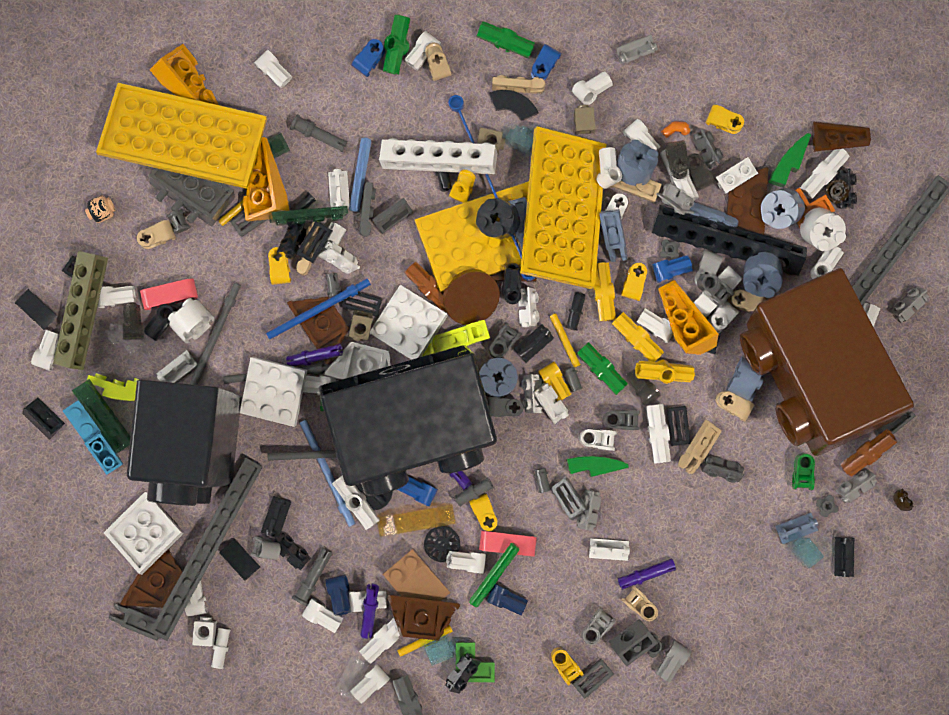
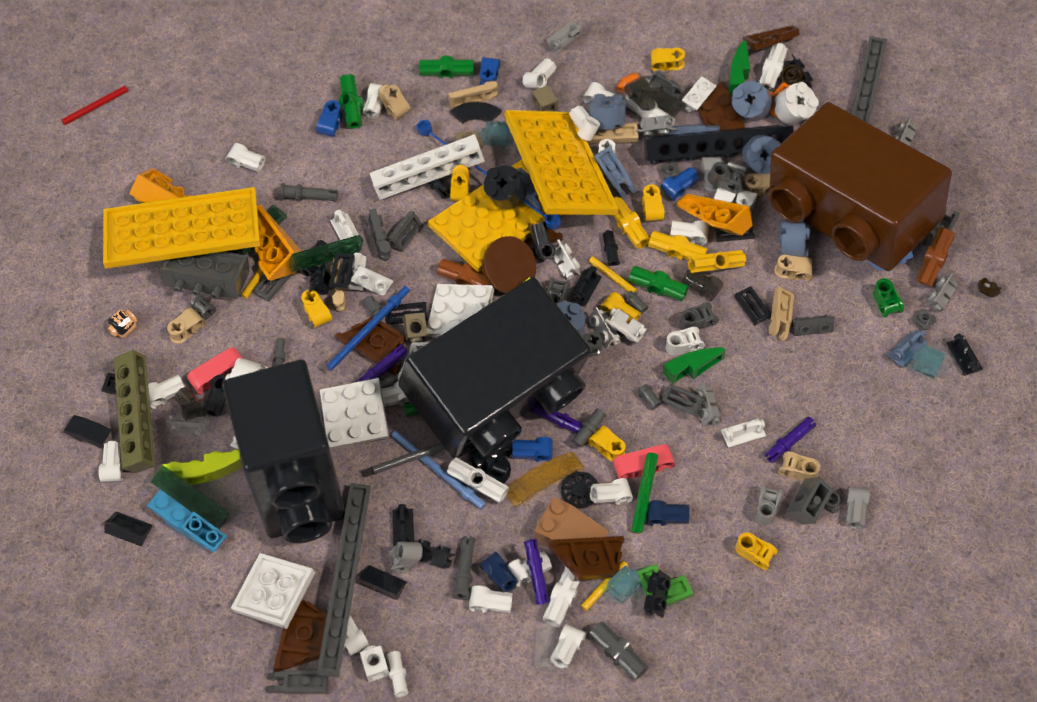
camera: 20 degrees left, 25 degrees down
(360, 174) = (360, 212): medium blue axle -> none
(587, 673) = (780, 569): dark grey tile -> none
(658, 433) = (738, 316): white piece -> none

